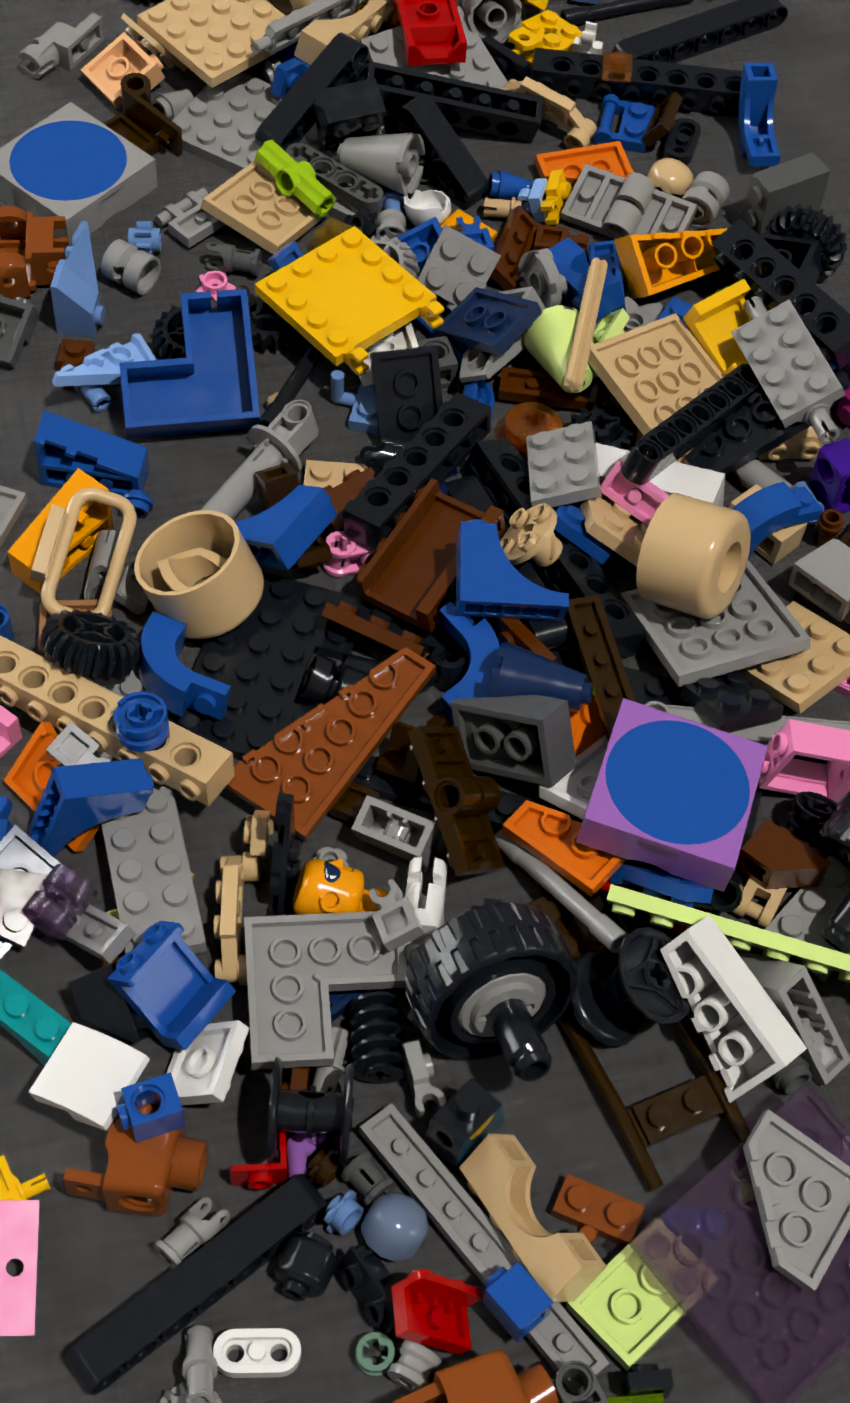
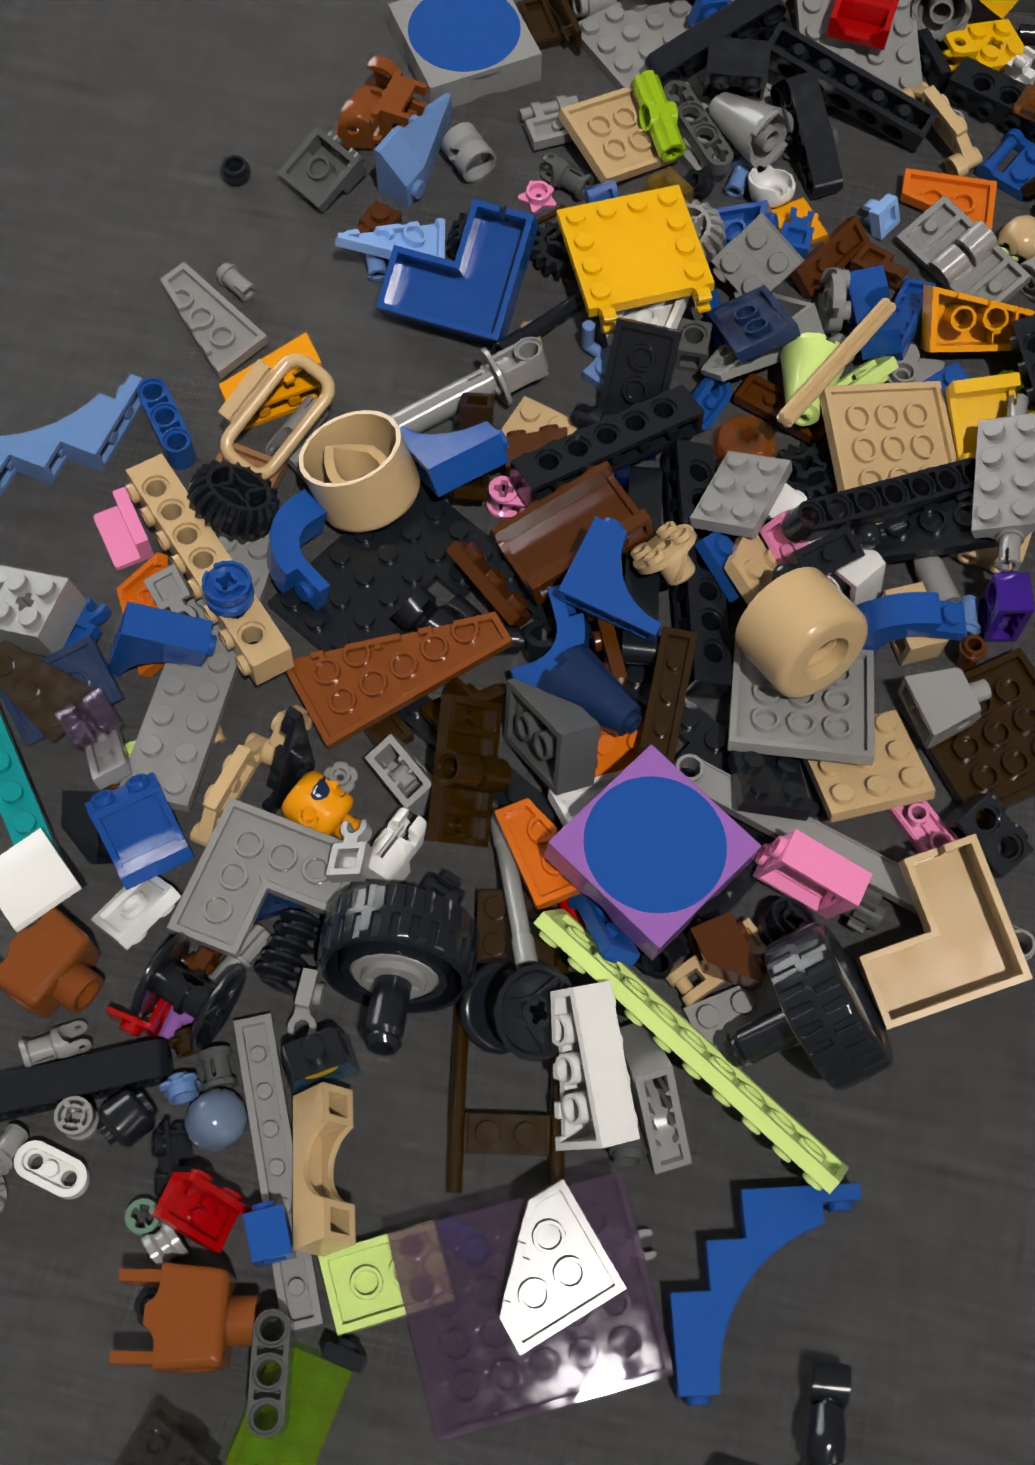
camera: 30 degrees right, 10 degrees up
(69, 445) = (333, 323): blue wedge -> none
(140, 501) = (354, 380): blue plate -> none
(145, 237) = (496, 129): medium blue gear -> none
(156, 1091) = (67, 941): blue brick -> none
(255, 1300) = (82, 1125): none -> light grey wheel
(390, 223) = (726, 192): light grey wheel -> none
(502, 206) = (842, 210): tan pin -> none
(506, 185) = (860, 189): blue cone -> none
(557, 193) = (902, 215): yellow plate -> none
(597, 1211) = (391, 1189): dark orange plate -> none
(679, 477) = (833, 550): none -> black plate

